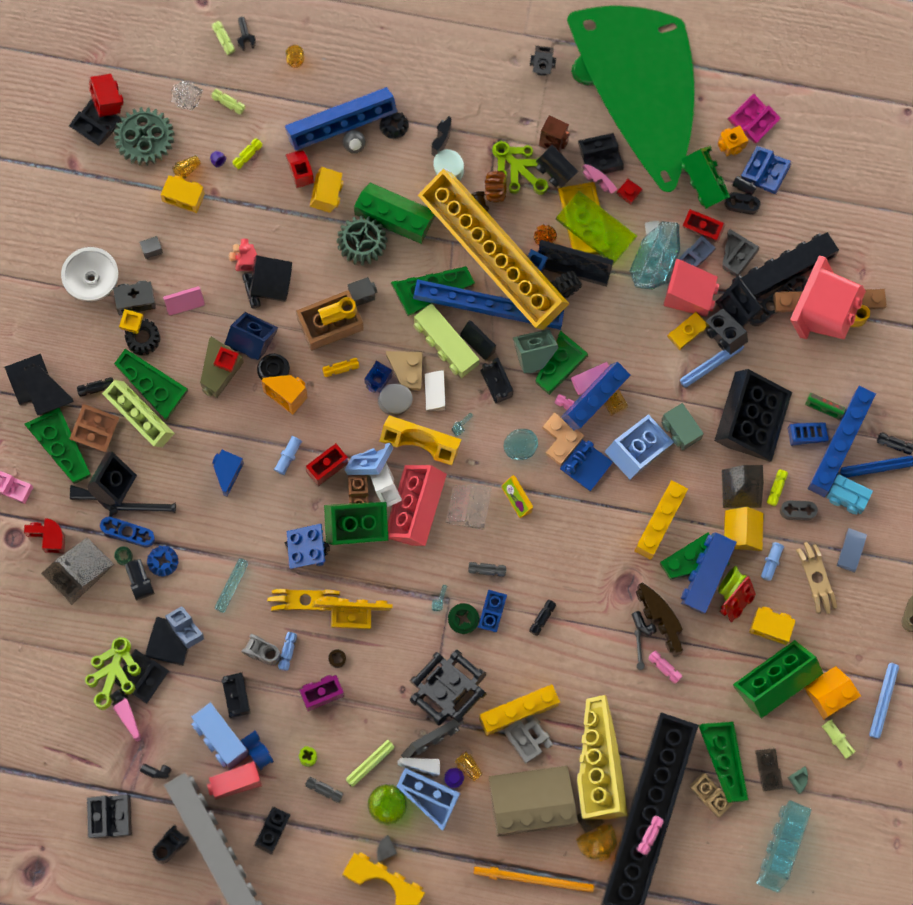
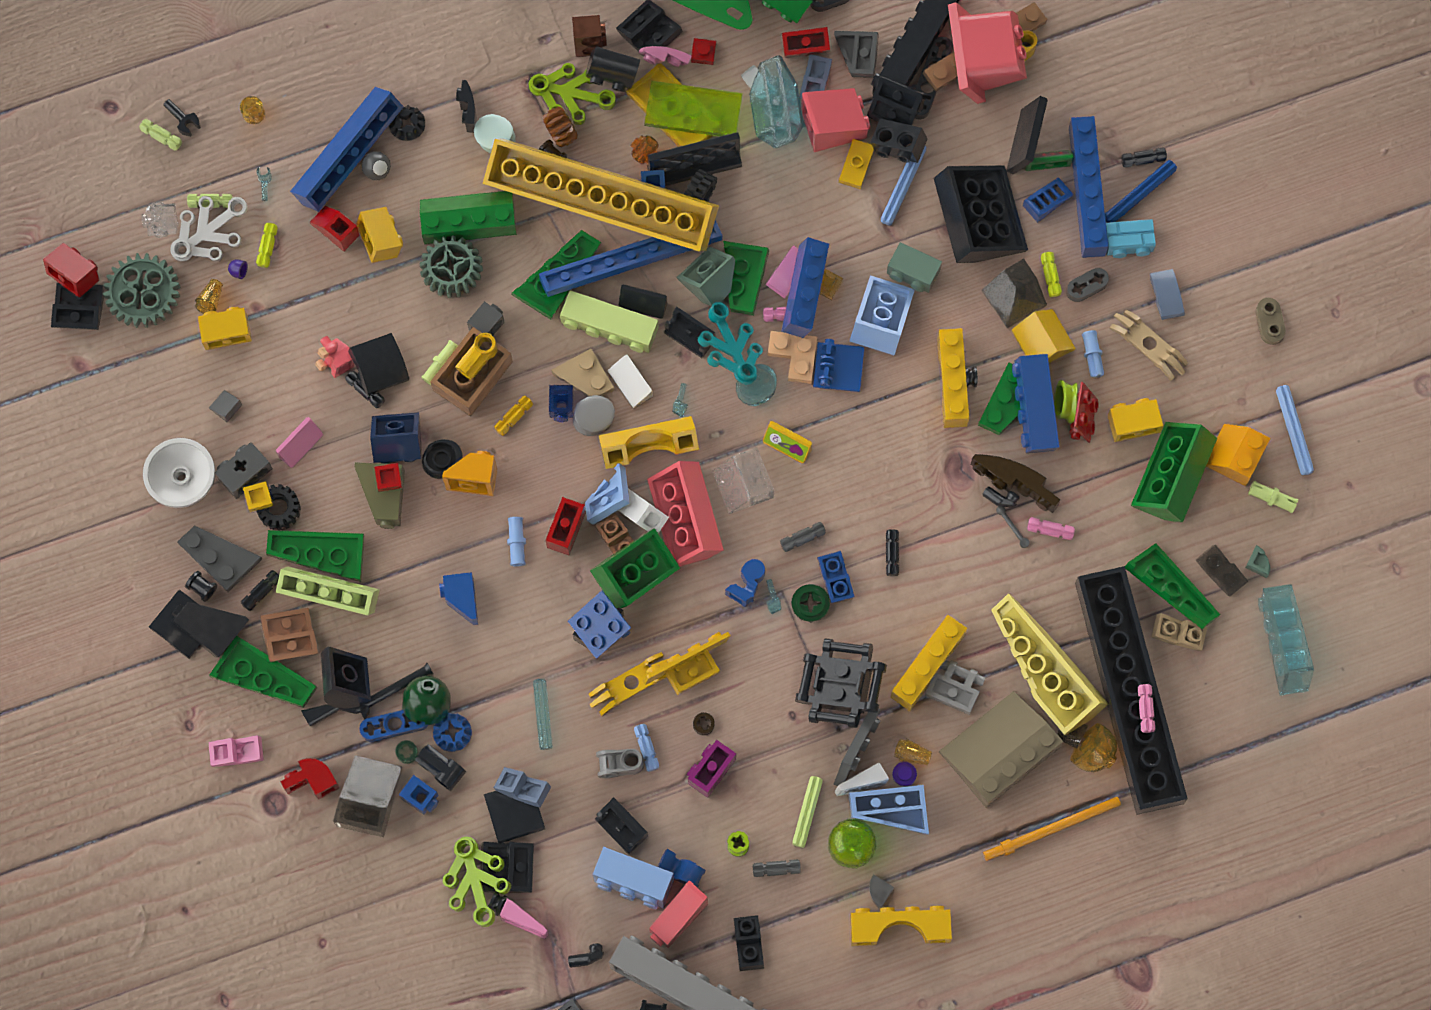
camera: 25 degrees left, 0 degrees up
(57, 360) = (201, 586): none -> black bush
(81, 347) = (219, 557): none -> dark grey wing
(112, 584) = (415, 788): none -> blue brick
(157, 528) = (426, 700): none -> dark green cylinder
(212, 120) = (206, 231): none -> white plant
(273, 108) = (264, 180): none -> clear light blue hand
(312, 300) = (439, 361): none -> yellowish green pin
(436, 574) = (752, 574): none -> blue leg
(518, 407) = (718, 314): none -> teal plant
(674, 526) = (972, 376): none -> black bush
(819, 379) = (1027, 135): none -> black tile

